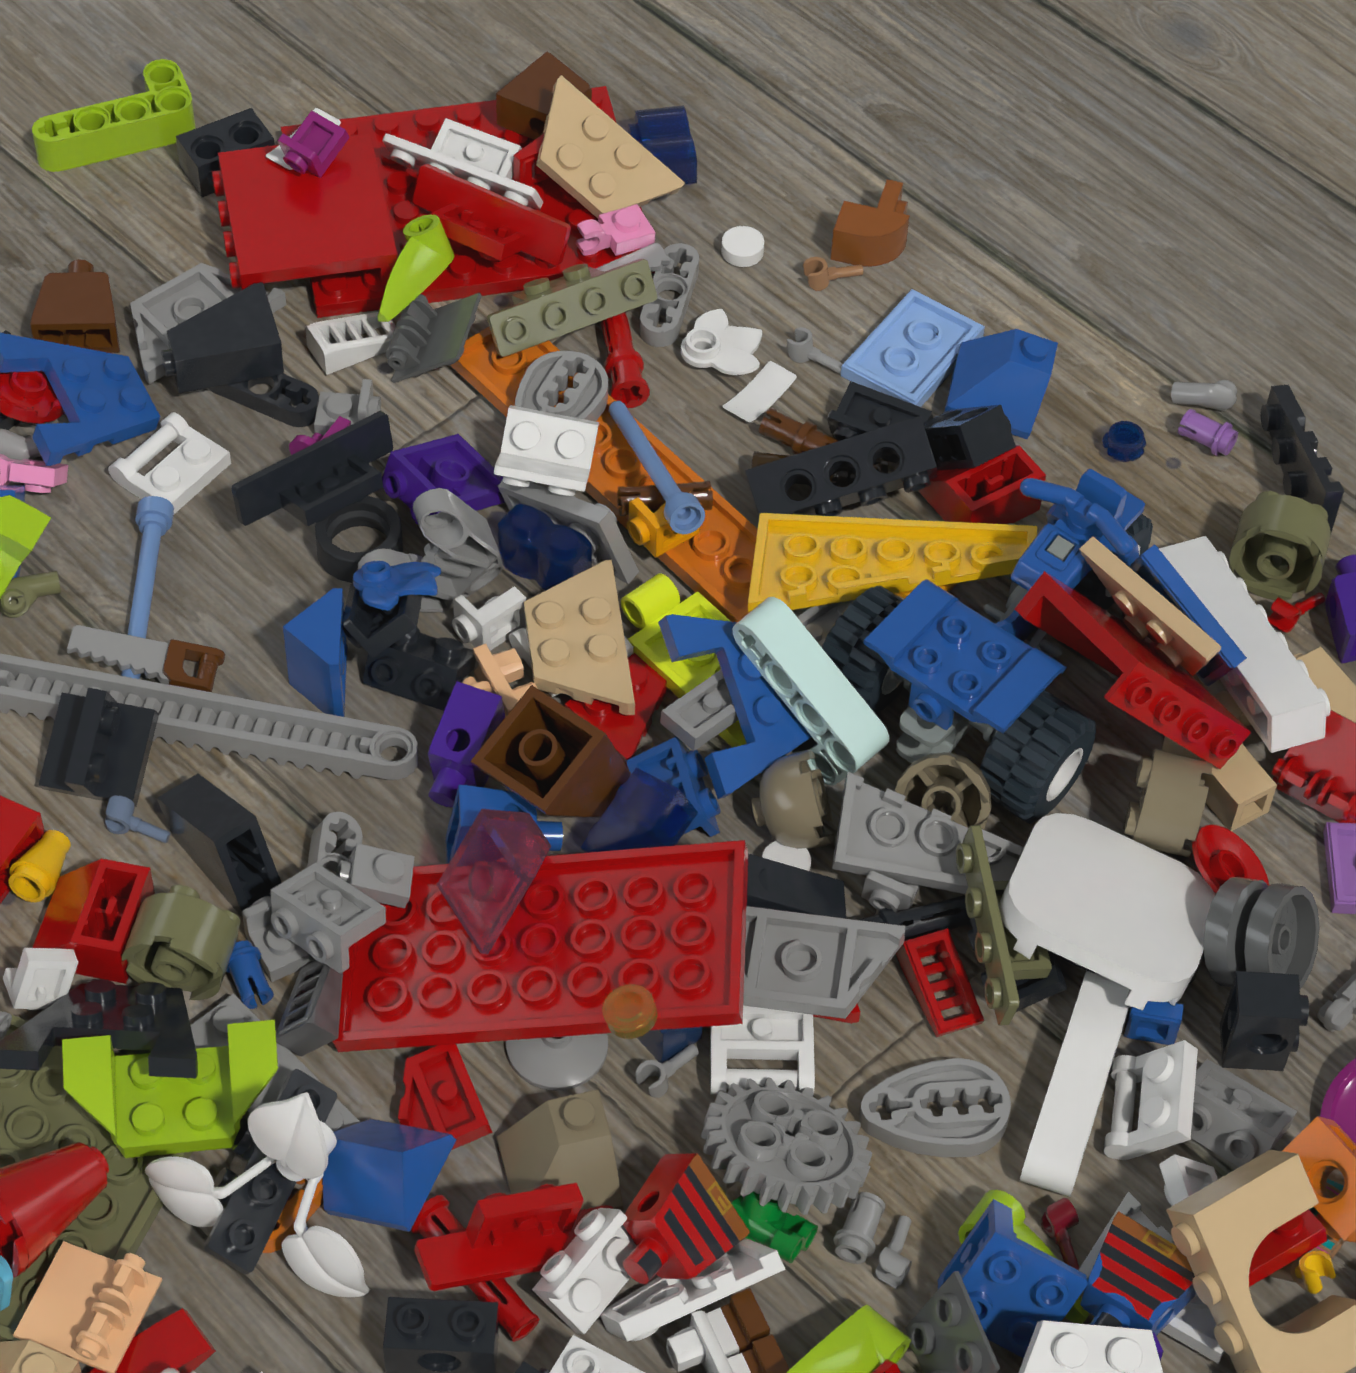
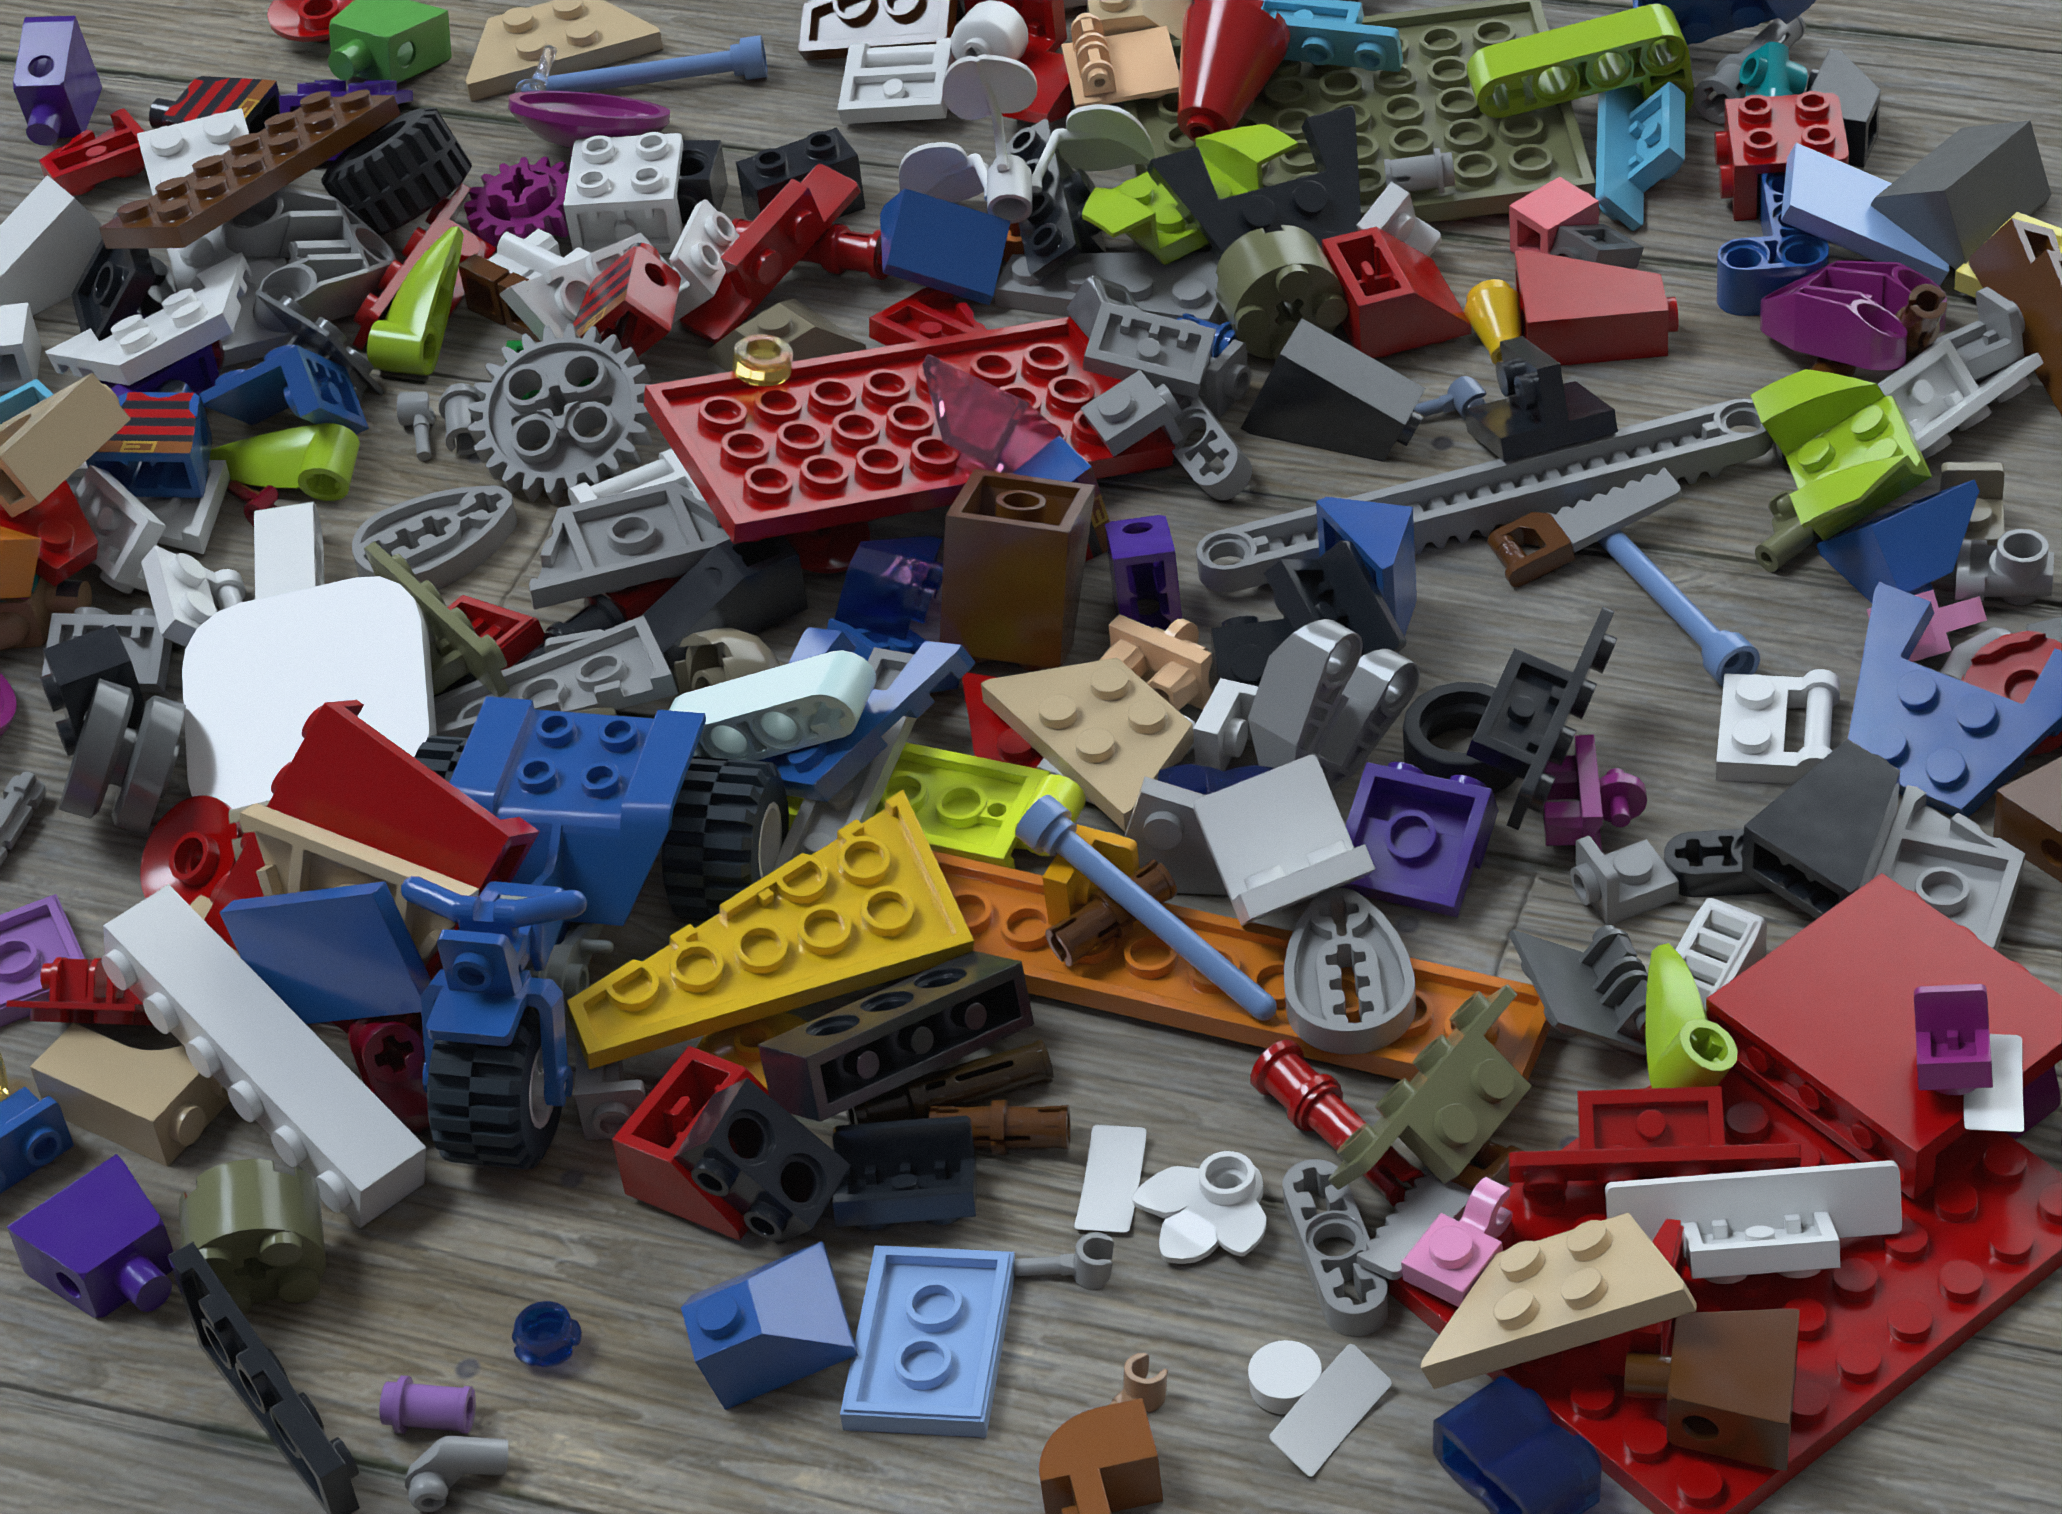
camera: 160 degrees right, 10 degrees down
(384, 584) = (1335, 595): blue plate -> none
(741, 219) = (1330, 1409): none -> white sticker

